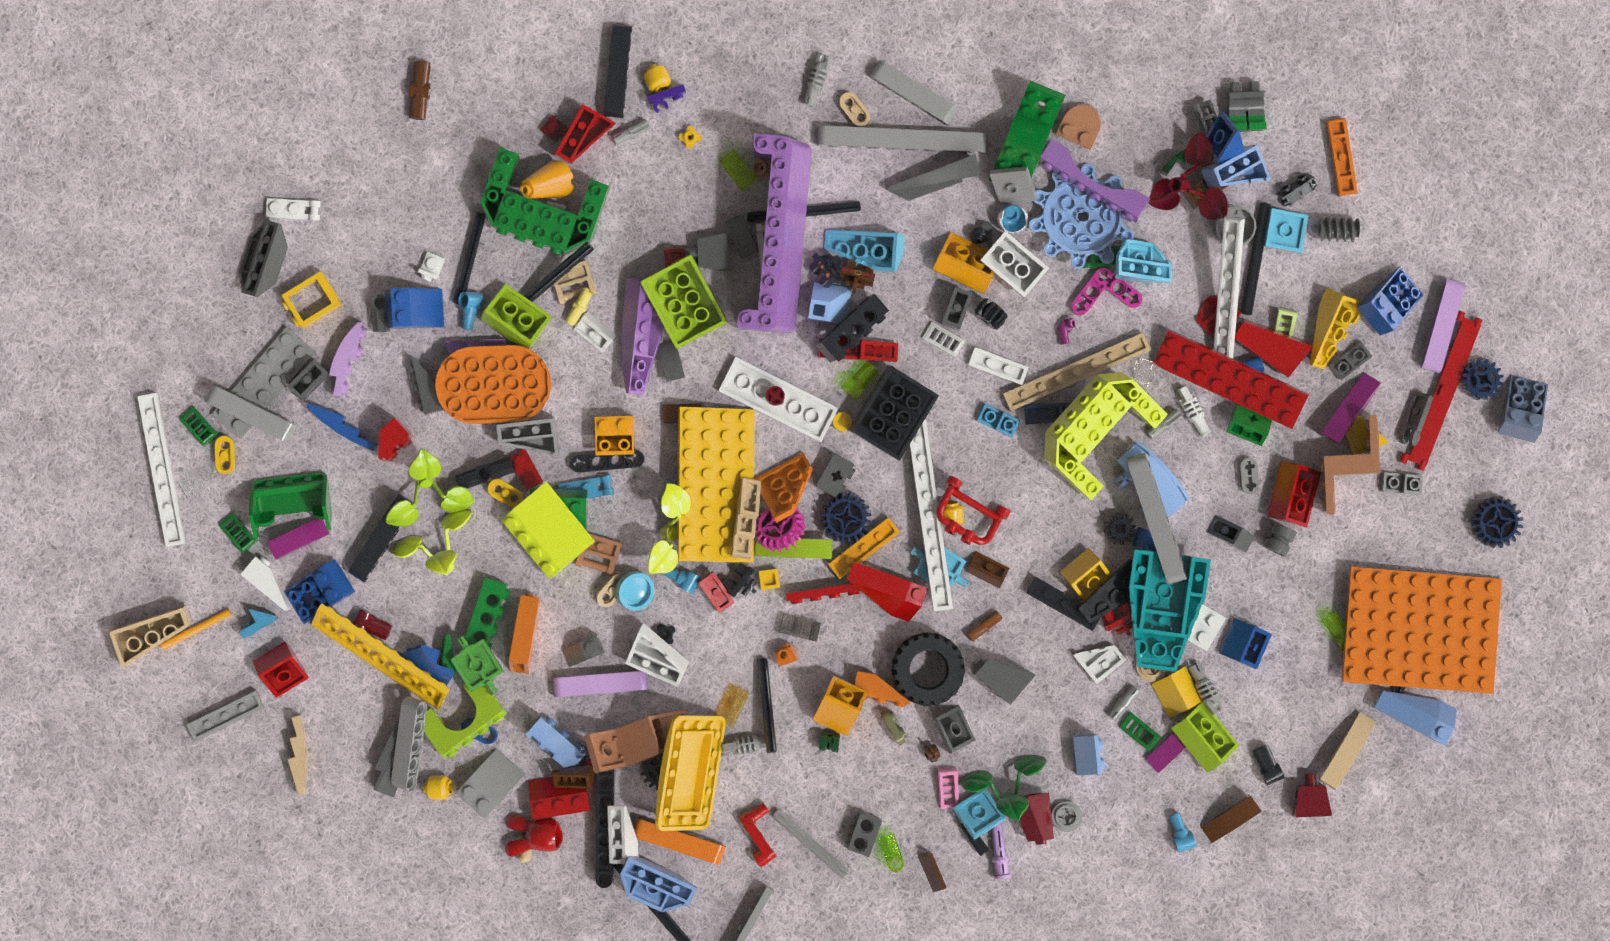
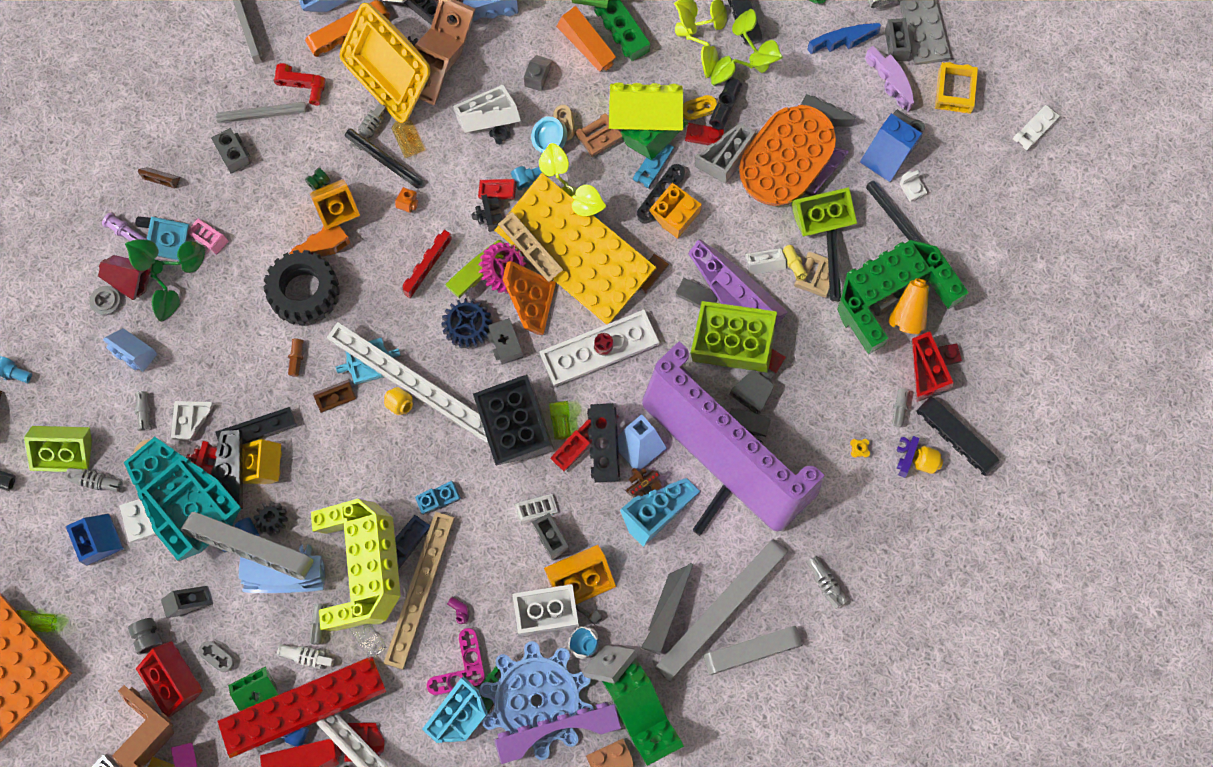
camera: 135 degrees right, 15 degrees down
(263, 259) = (1012, 76): dark grey wedge -> none
(392, 438) = (806, 59): red slope -> none
(419, 90) = (1058, 280): reddish brown piece -> none
(470, 303) = (862, 188): dark azure pin -> none
(600, 683) = (505, 61): lavender beam -> none
(737, 170) = (797, 462): clear neon green slope -> none
(769, 579) = (472, 234): yellow plate -> none
(799, 627) = (417, 228): clear smoke slope -> none
(829, 266) = (667, 464): black hips -> none
(842, 421) = (541, 381): yellow tile -> none
(855, 109) = (777, 592): tan plate -> none
(864, 547) = (432, 319): light orange plate -> none
(890, 719) = (277, 231): olive plate -> none
(891, 850) = (199, 159): clear neon green piece -> none
(893, 594) = (383, 308): red wedge -> none
(931, 752) = (241, 243): reddish brown plate -> none
(952, 526) = (370, 396): red bar -> none
(954, 729) = (242, 270): dark grey slope -> none
(978, 235) = (593, 604): black plate -> none
(991, 313) = (523, 559): black gear -> none
(998, 366) = (478, 532): white plate -> none
(1003, 679) = (243, 334): dark grey slope -> none
(1154, 740) = (112, 411): green slope -> none
(1165, 753) = (78, 409): magenta tile -> none
(1177, 692) = (108, 457): yellow slope -> none

